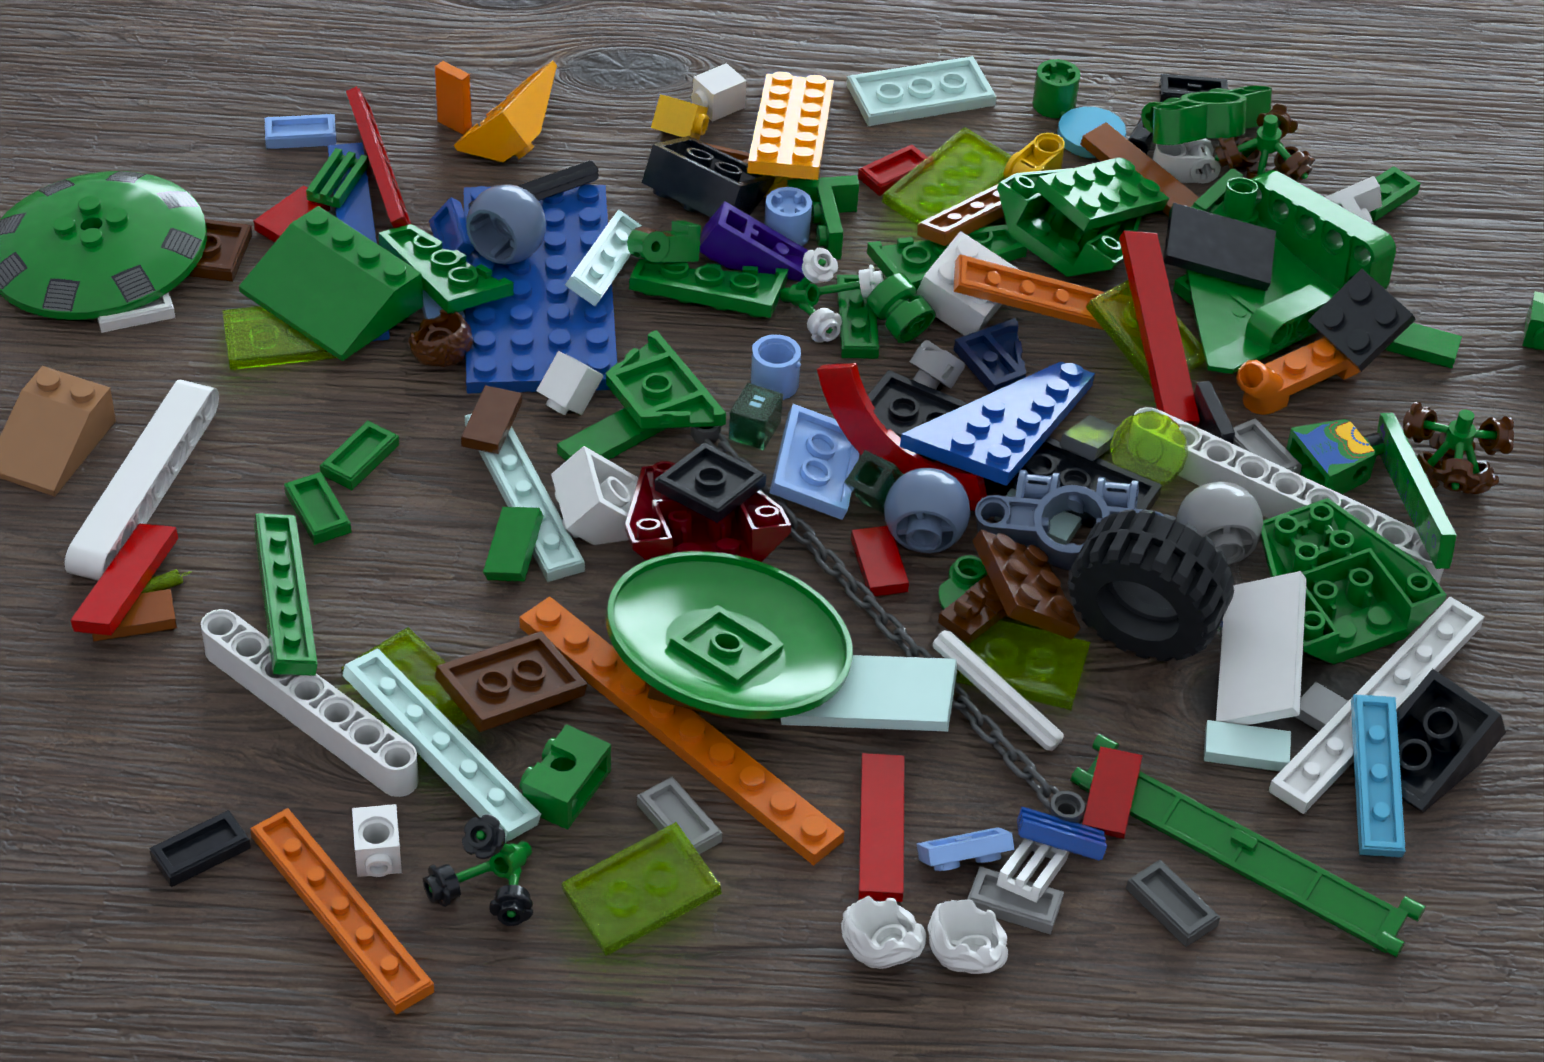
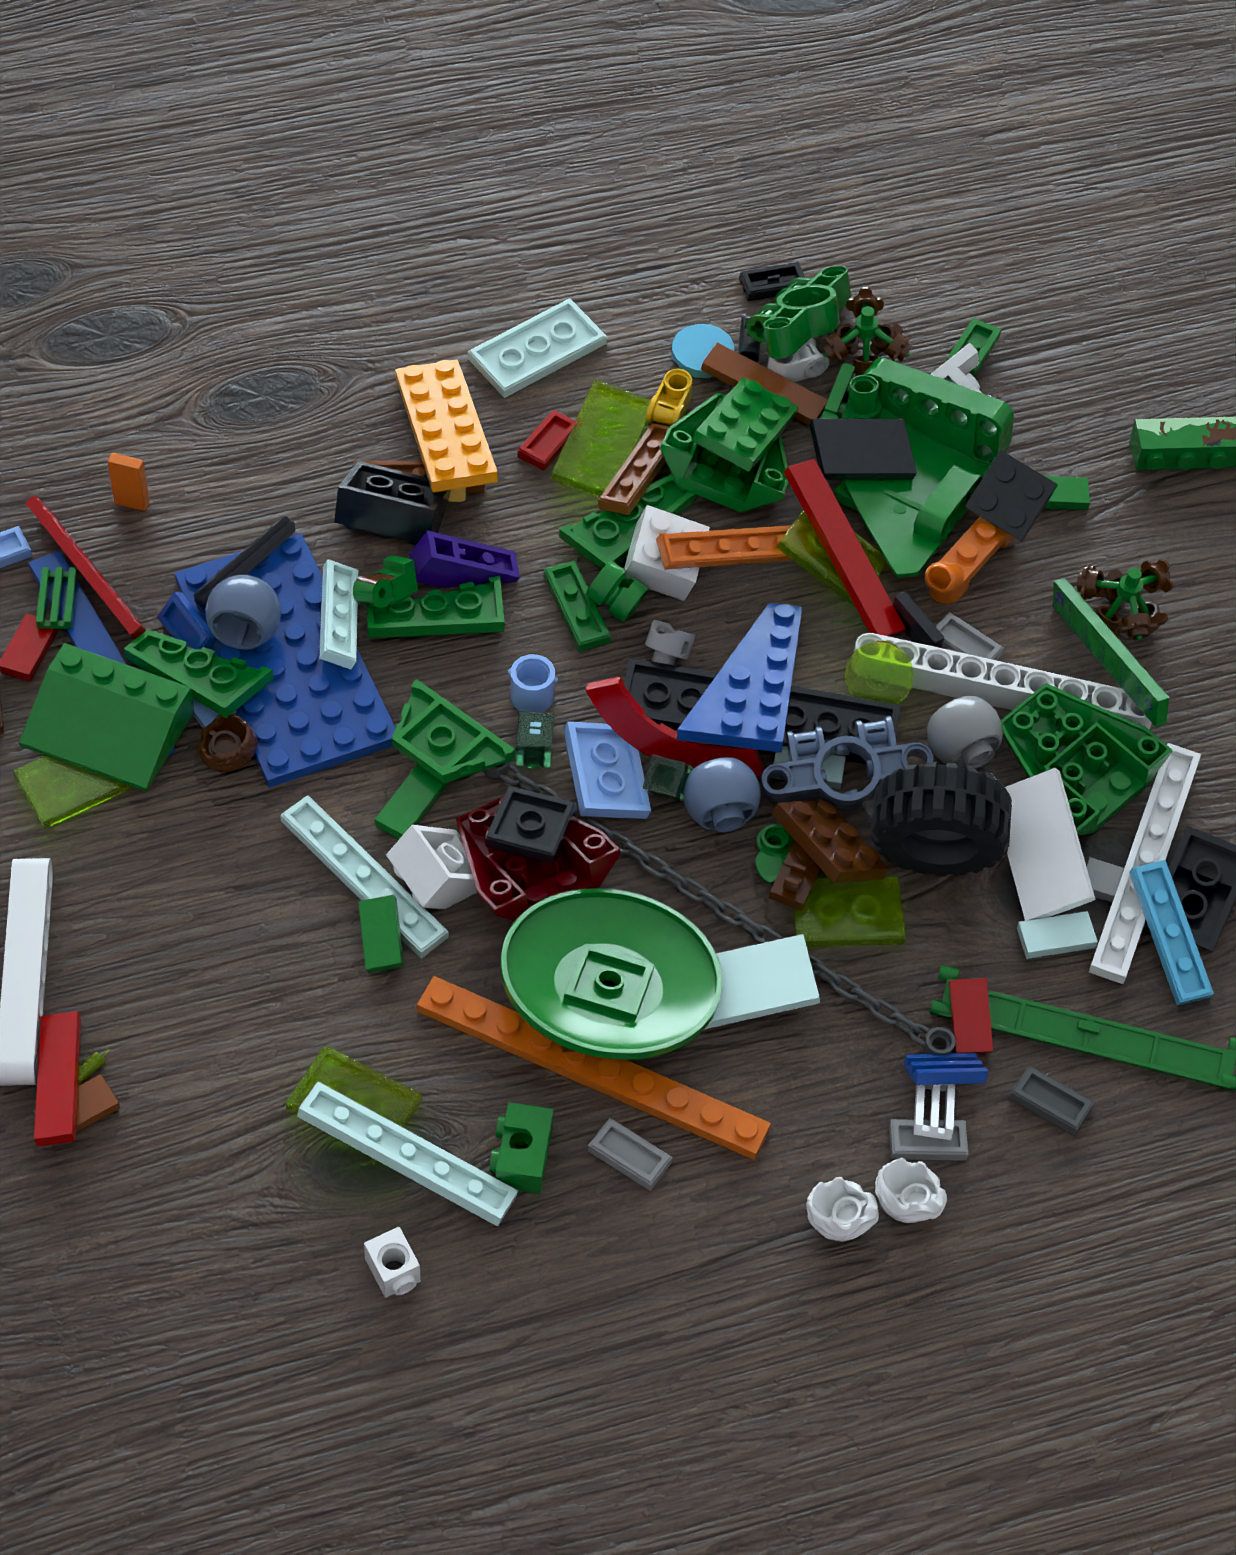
camera: 20 degrees left, 10 degrees up
(200, 848) = (241, 1317): black tile -> none
(285, 595) = (209, 1051): green tile -> none
(312, 705) = (284, 1161): white beam -> none
(317, 508) = (190, 949): green tile -> none
(342, 911) = (387, 1334): orange tile -> none
(359, 455) = (203, 883): green tile -> none
(486, 840) = (501, 1245): black plant -> none
(491, 419) = (309, 814): reddish brown tile -> none
(510, 681) = (439, 1072): reddish brown plate -> none
(514, 122) = (190, 485): light orange wedge -> none
(569, 384) = (362, 757): white brick -> none
(641, 888) = (628, 1232): clear neon green tile -> none
(680, 117) = (341, 443): yellow brick -> none
(720, 91) = (362, 402): white brick -> none
(789, 213) = (480, 520): light blue piece -> none
(818, 268) = (543, 580): white plant -> none
(829, 199) = (505, 500): green bracket -> none
(879, 561) = (694, 850): red tile -> none
(881, 827) = (797, 1108): red tile -> none
(981, 845) = (873, 1106): light blue plate -> none
(993, 354) = (712, 614): dark blue wing -> none
(999, 691) = (844, 949): white axle -> none
(1056, 88) = (658, 315): green piece -> none
(1088, 438) = (825, 675): dark grey tile -> none
(1335, 453) = (1028, 631): green torso -> none

